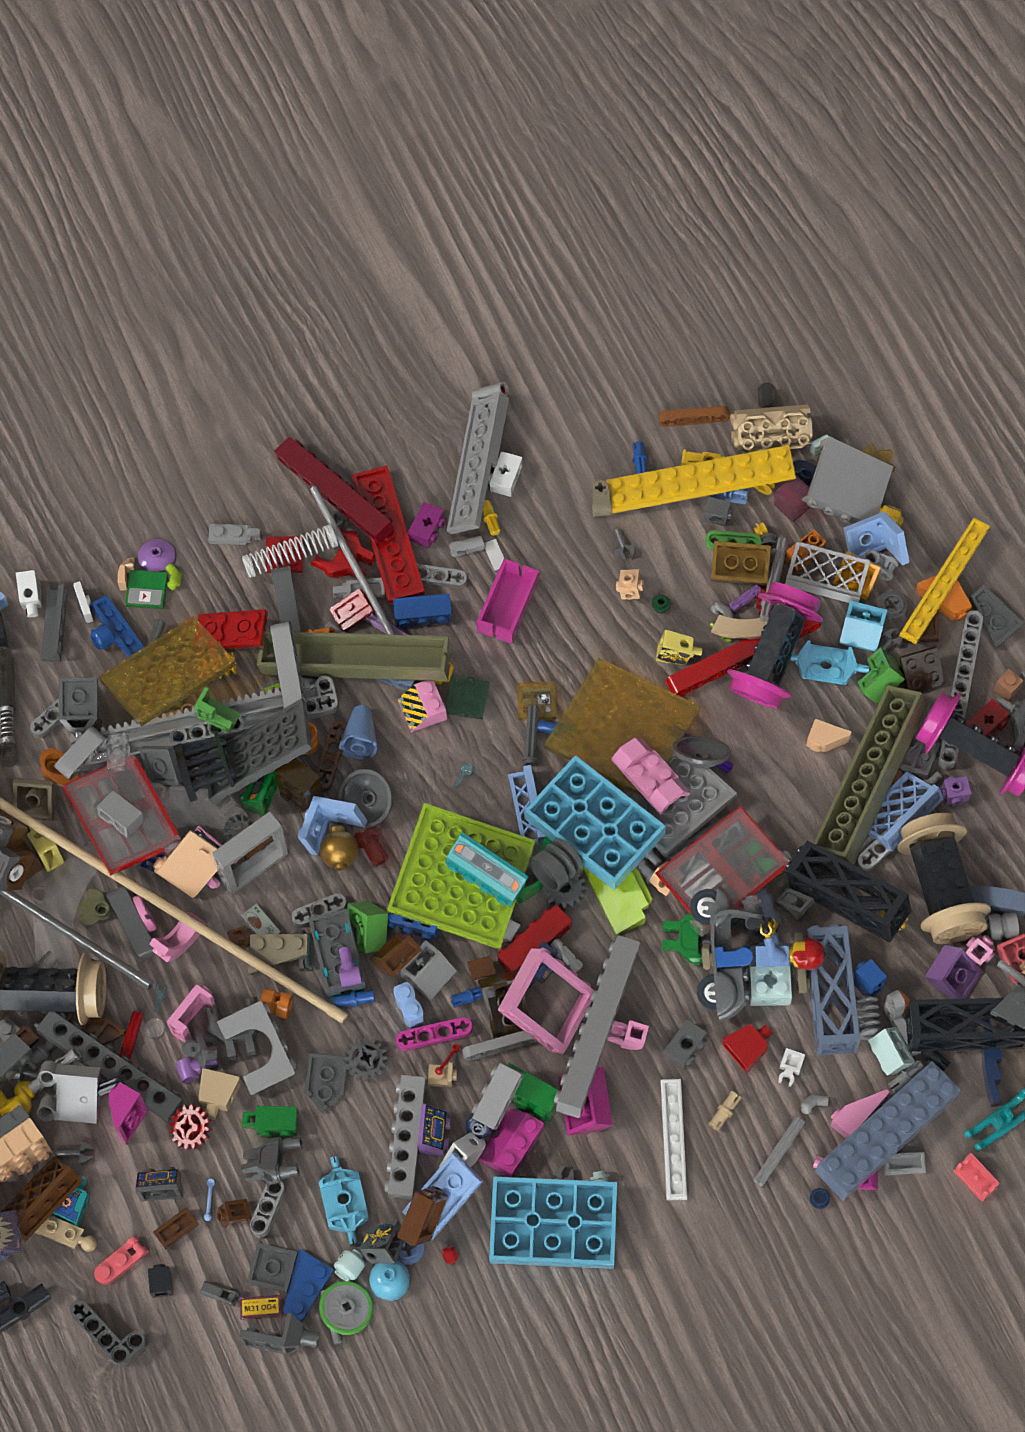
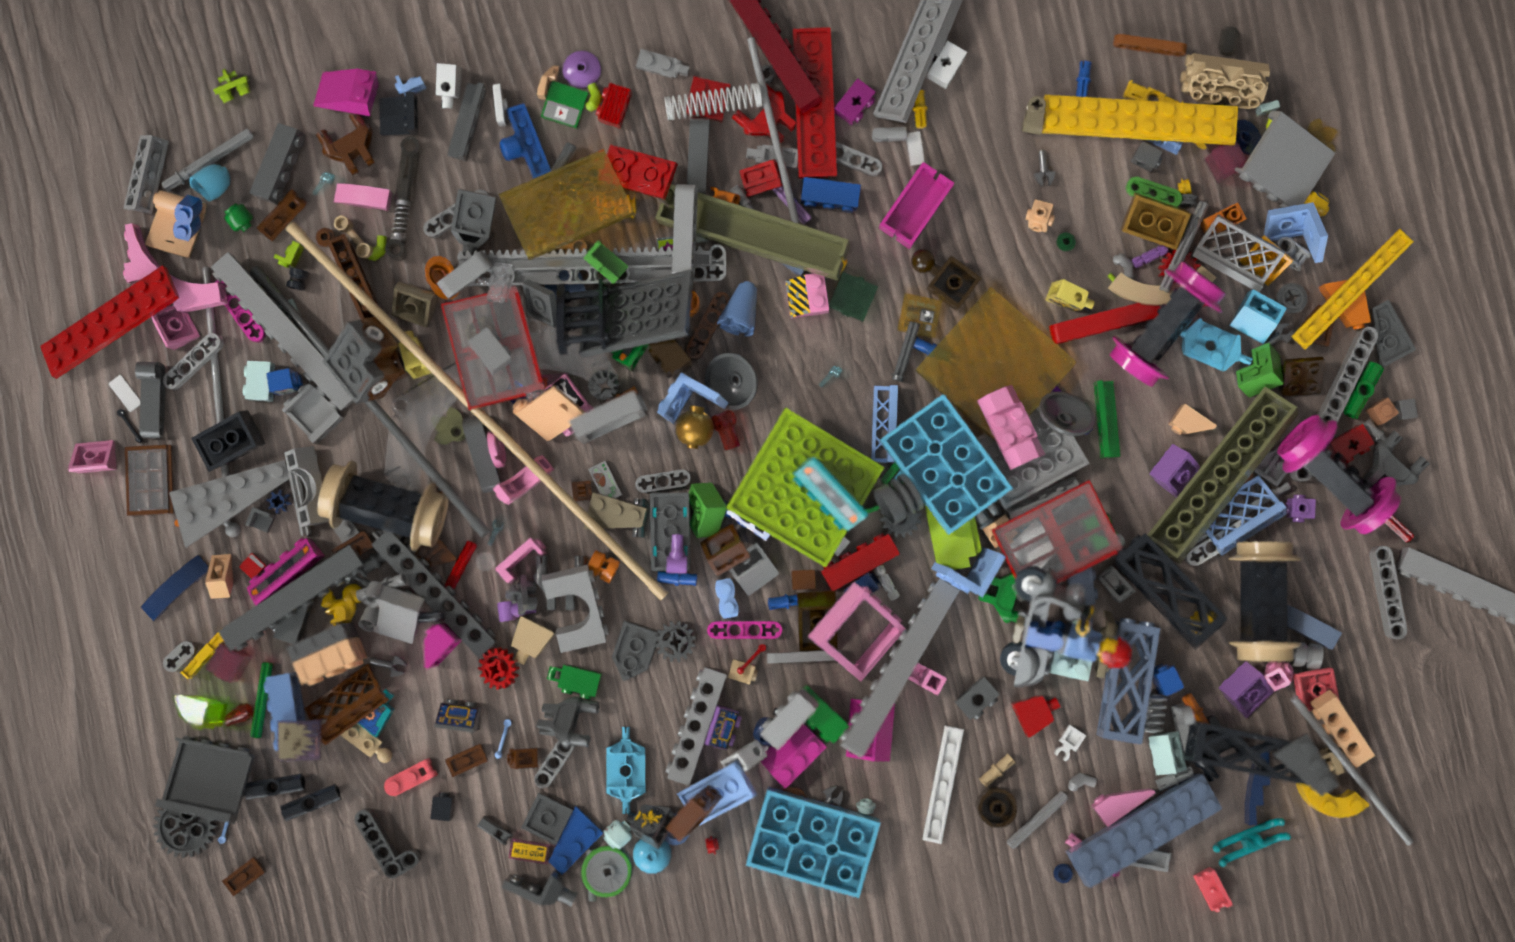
camera: 10 degrees right, 20 degrees up
(195, 578) = (614, 105): none -> red brick
(550, 664) = (924, 262): none -> dark brown brick
(645, 932) = (979, 576): none -> light blue bracket
(733, 1156) = (1007, 805): none -> dark brown brick
(744, 753) = (1106, 419): none -> green fence
(822, 783) = (1175, 470): none -> medium lavender slope
(986, 661) = (1367, 379): none -> green piece

